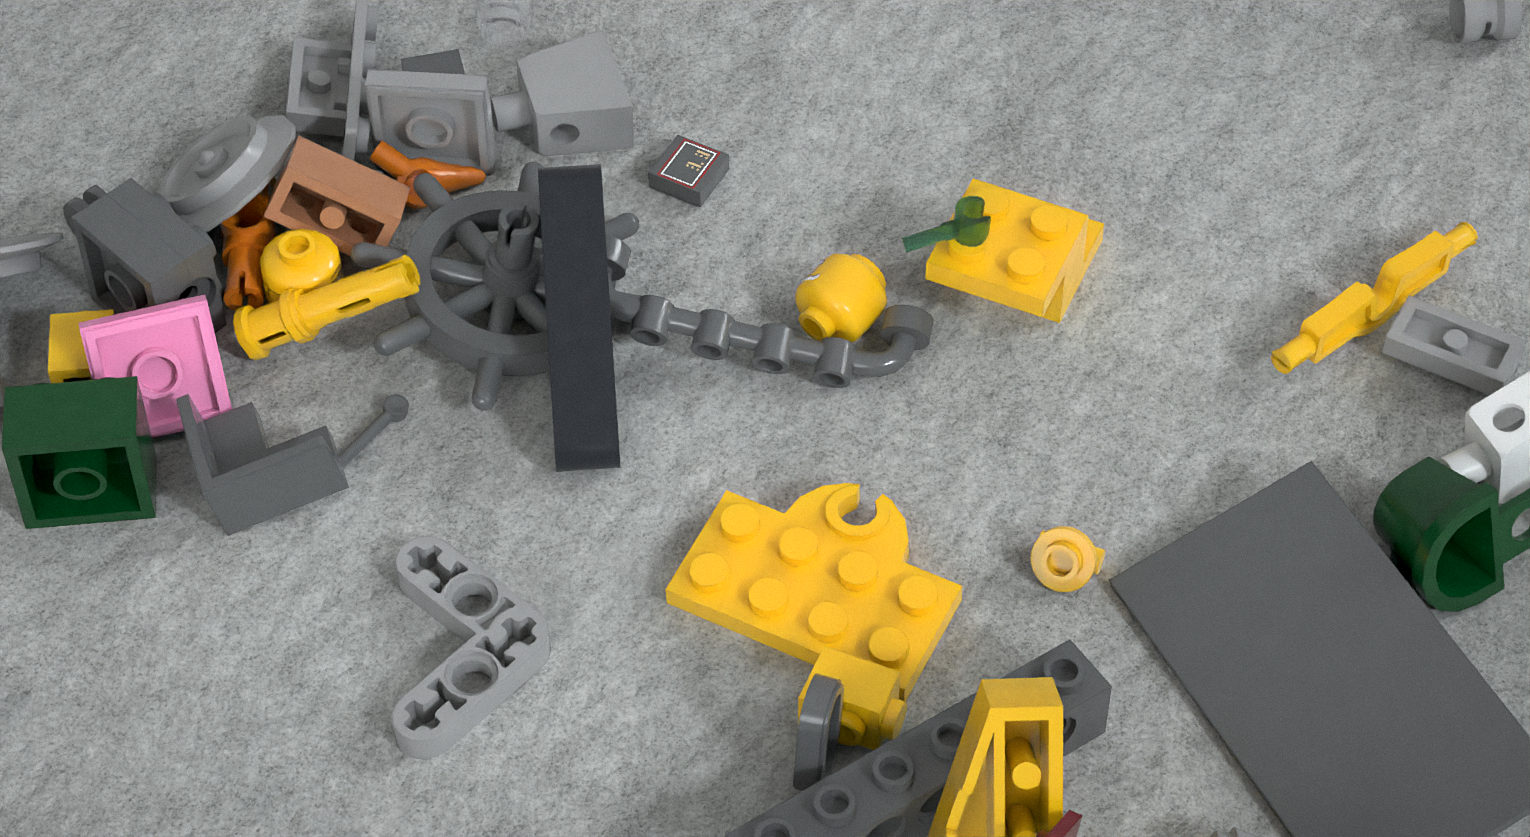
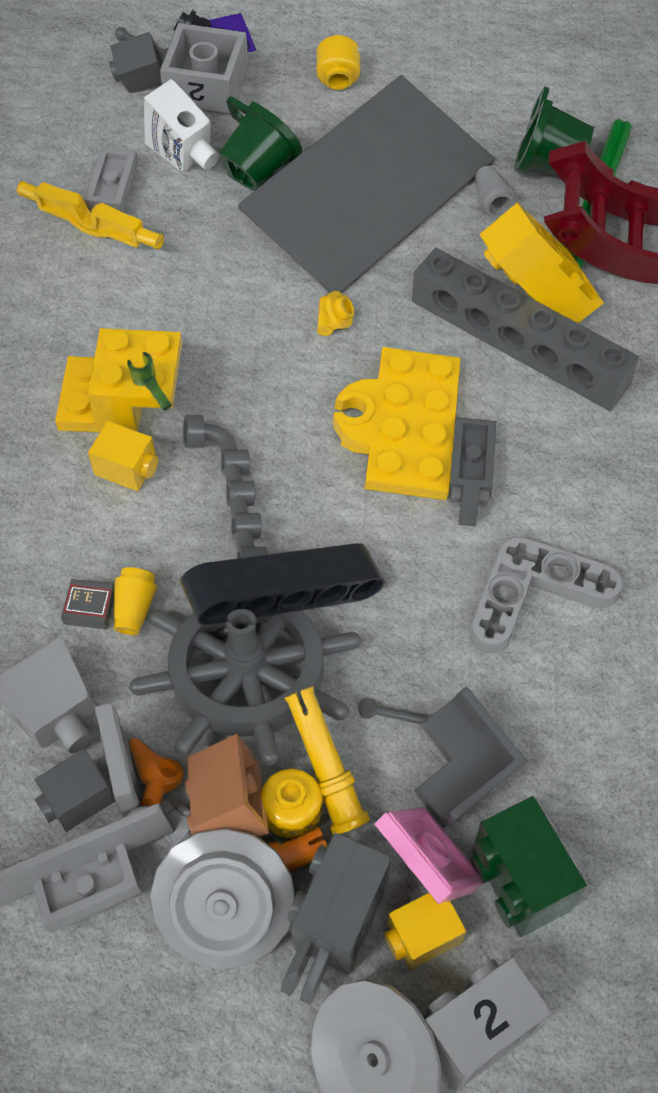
camera: 110 degrees left, 10 degrees up
(669, 206) = (132, 599): none -> yellow cone
(697, 633) = (472, 466): none -> dark grey hinge
(818, 731) = (527, 368): dark grey tile -> none
(841, 297) = (188, 466): yellow head -> none
(870, 698) = (485, 377): yellow brick -> none
(880, 232) = (123, 456): none -> yellow brick

